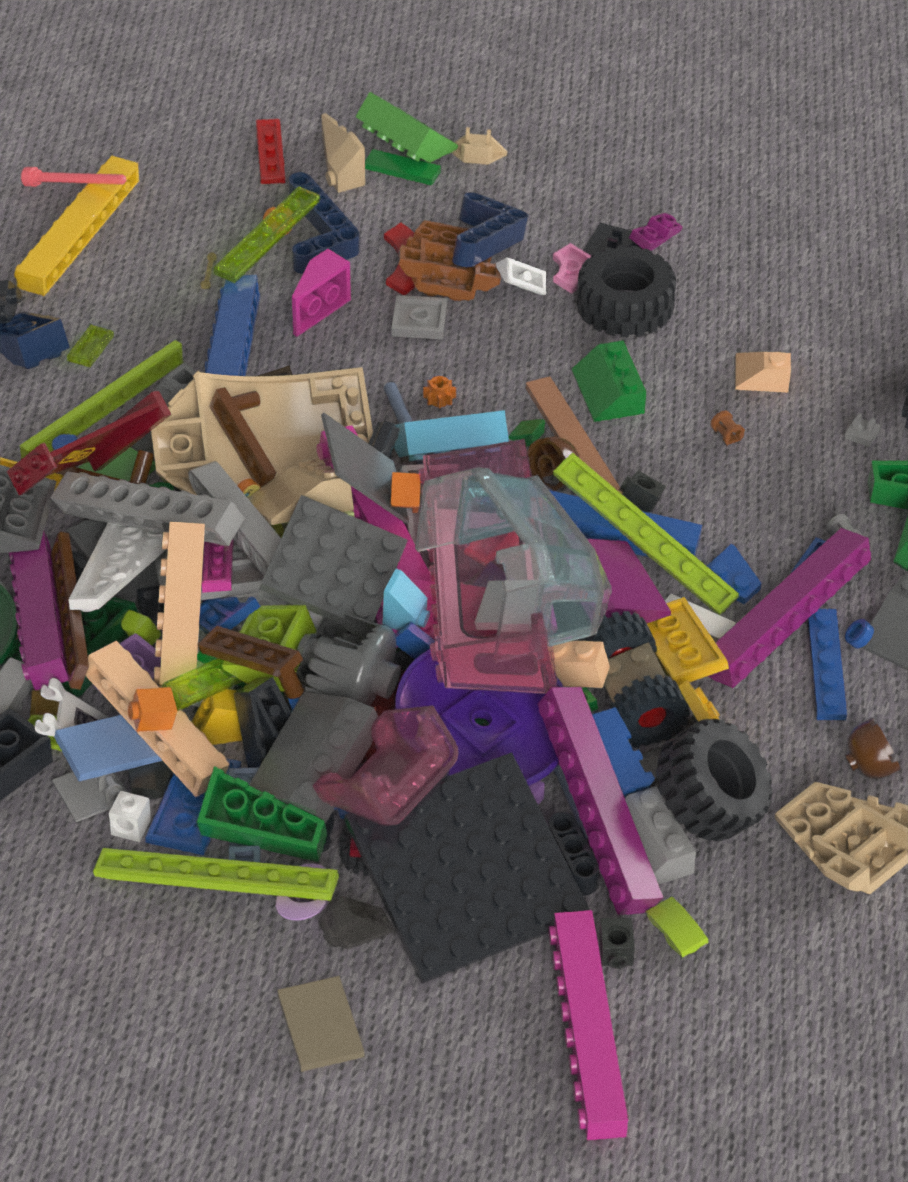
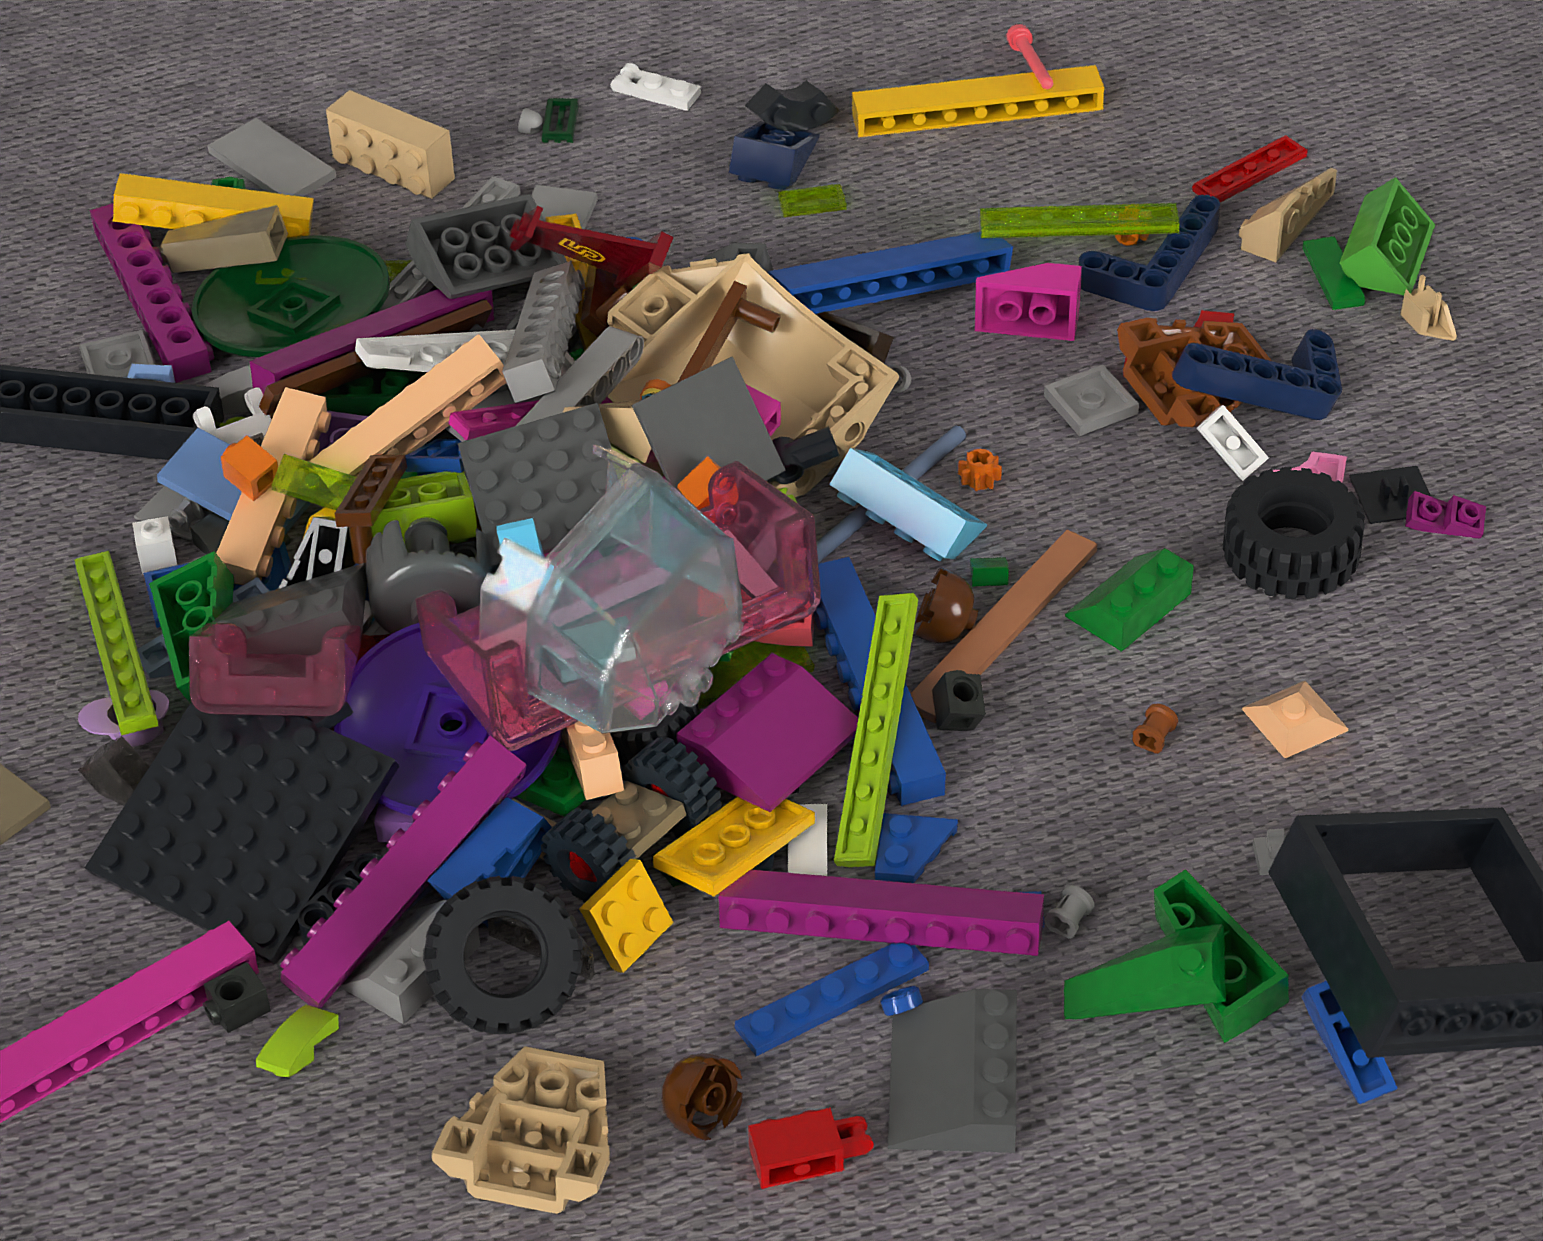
camera: 60 degrees right, 0 degrees up
(109, 397) = (697, 243): lime tile -> none

